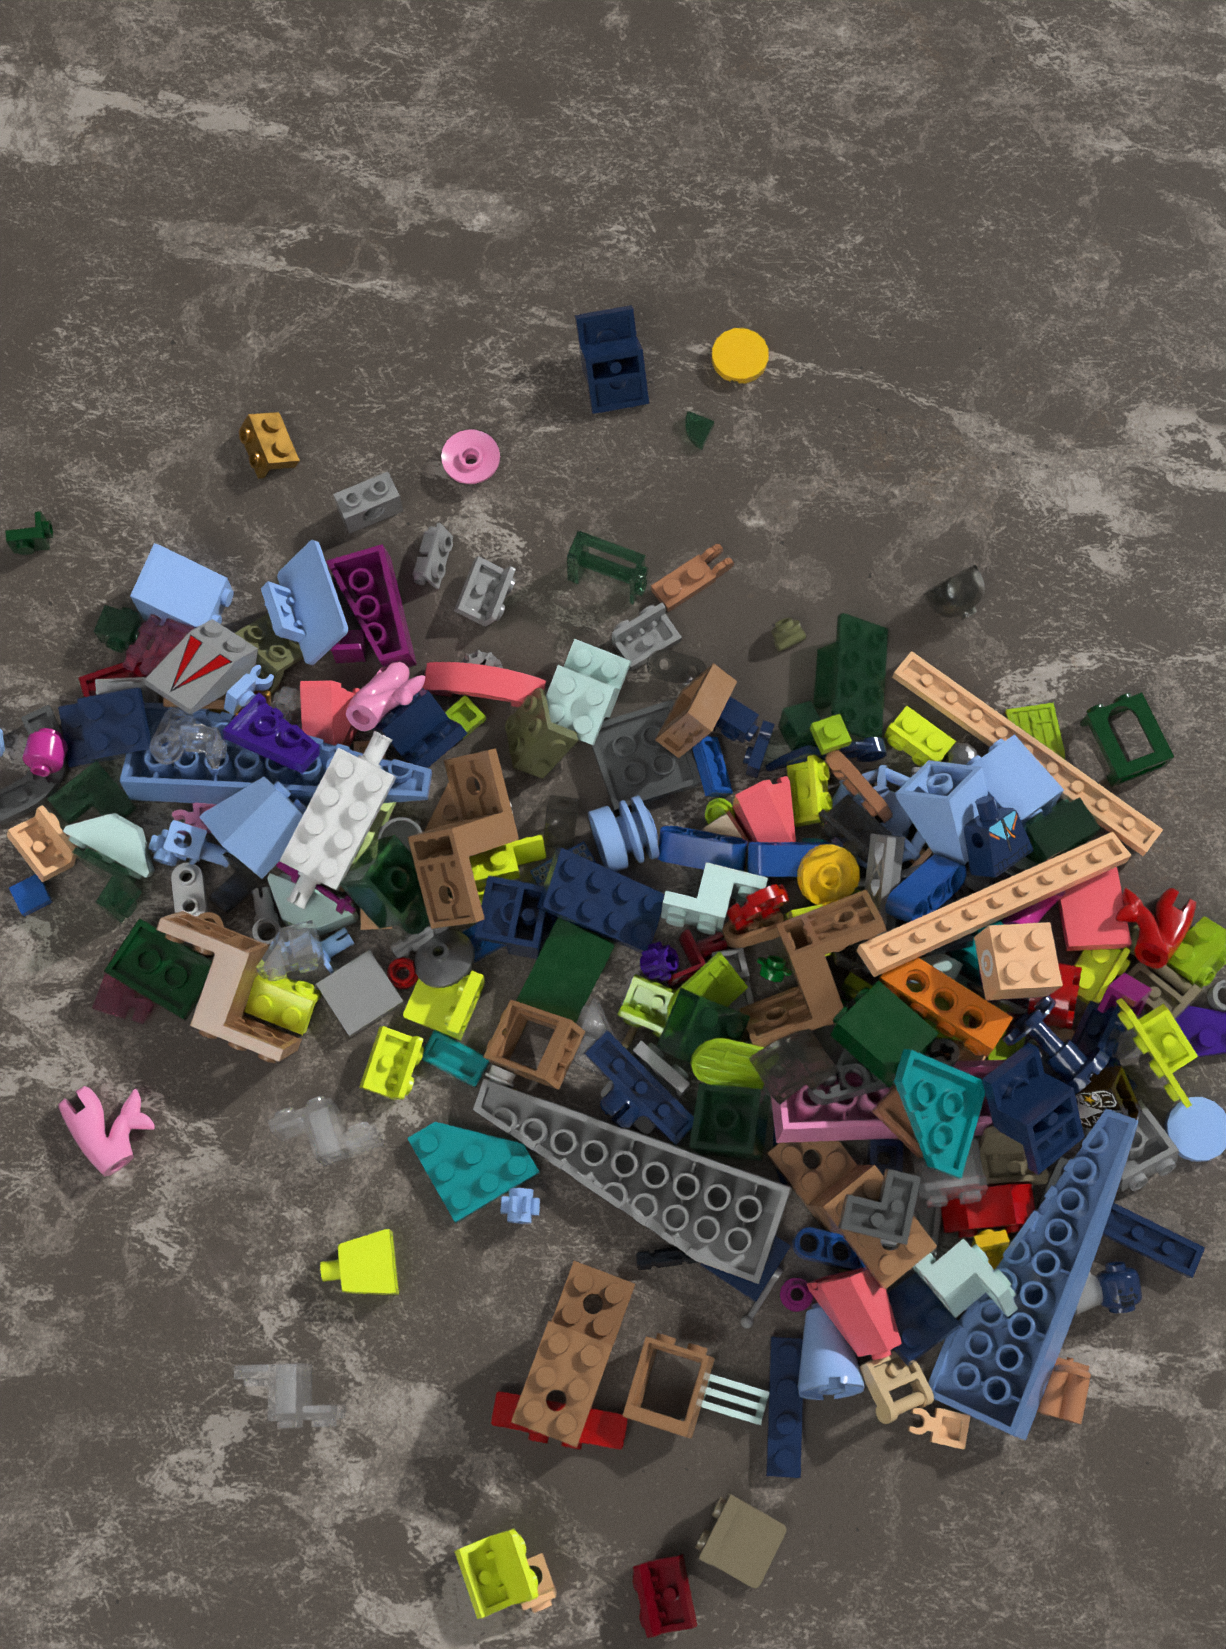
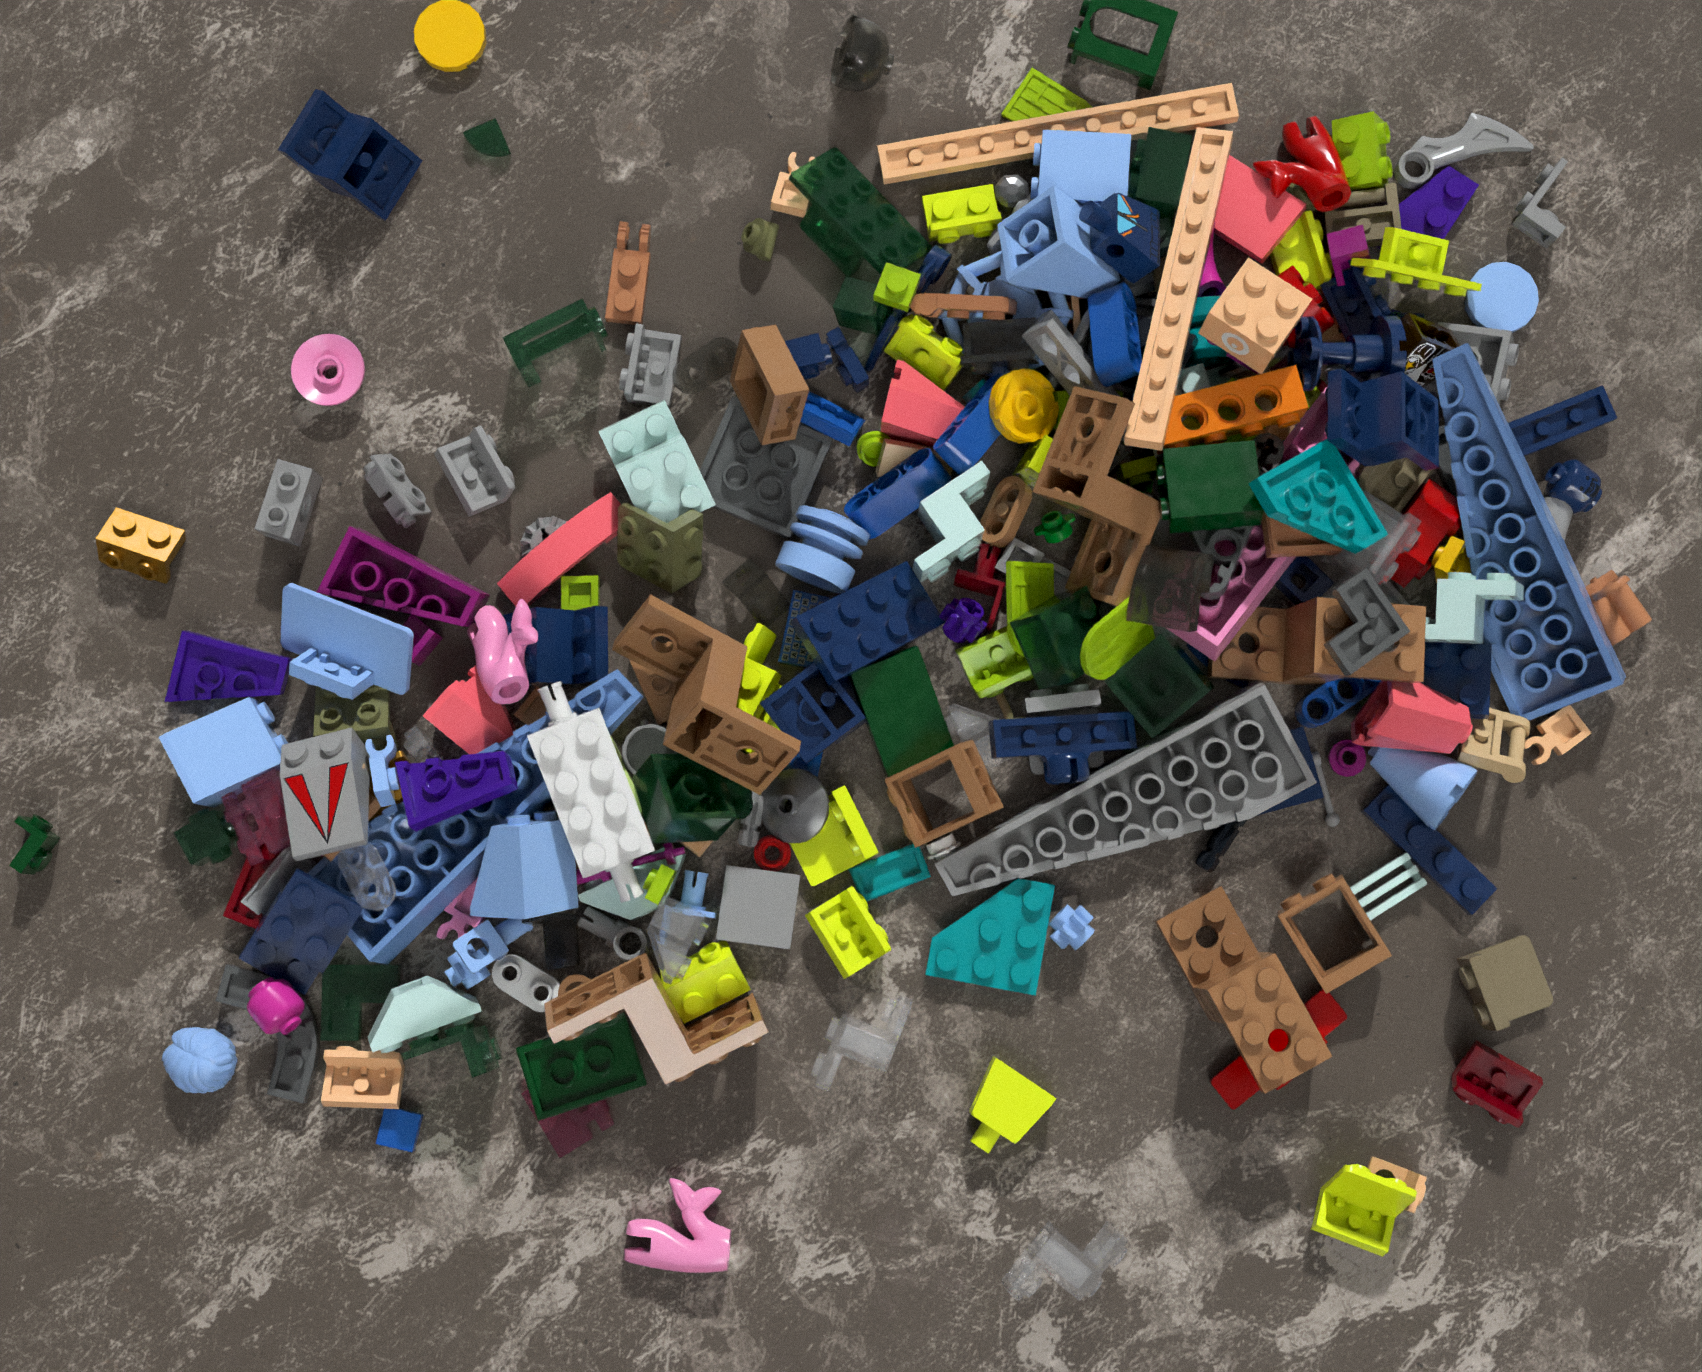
camera: 50 degrees left, 10 degrees up
(204, 740) = (401, 849): clear bracket -> none
(232, 551) = (224, 669): none -> dark purple wing
(319, 912) = (658, 883): none -> lime plate
(760, 903) = (997, 491): red plate -> none
(826, 624) = (786, 196): none -> light nougat plate

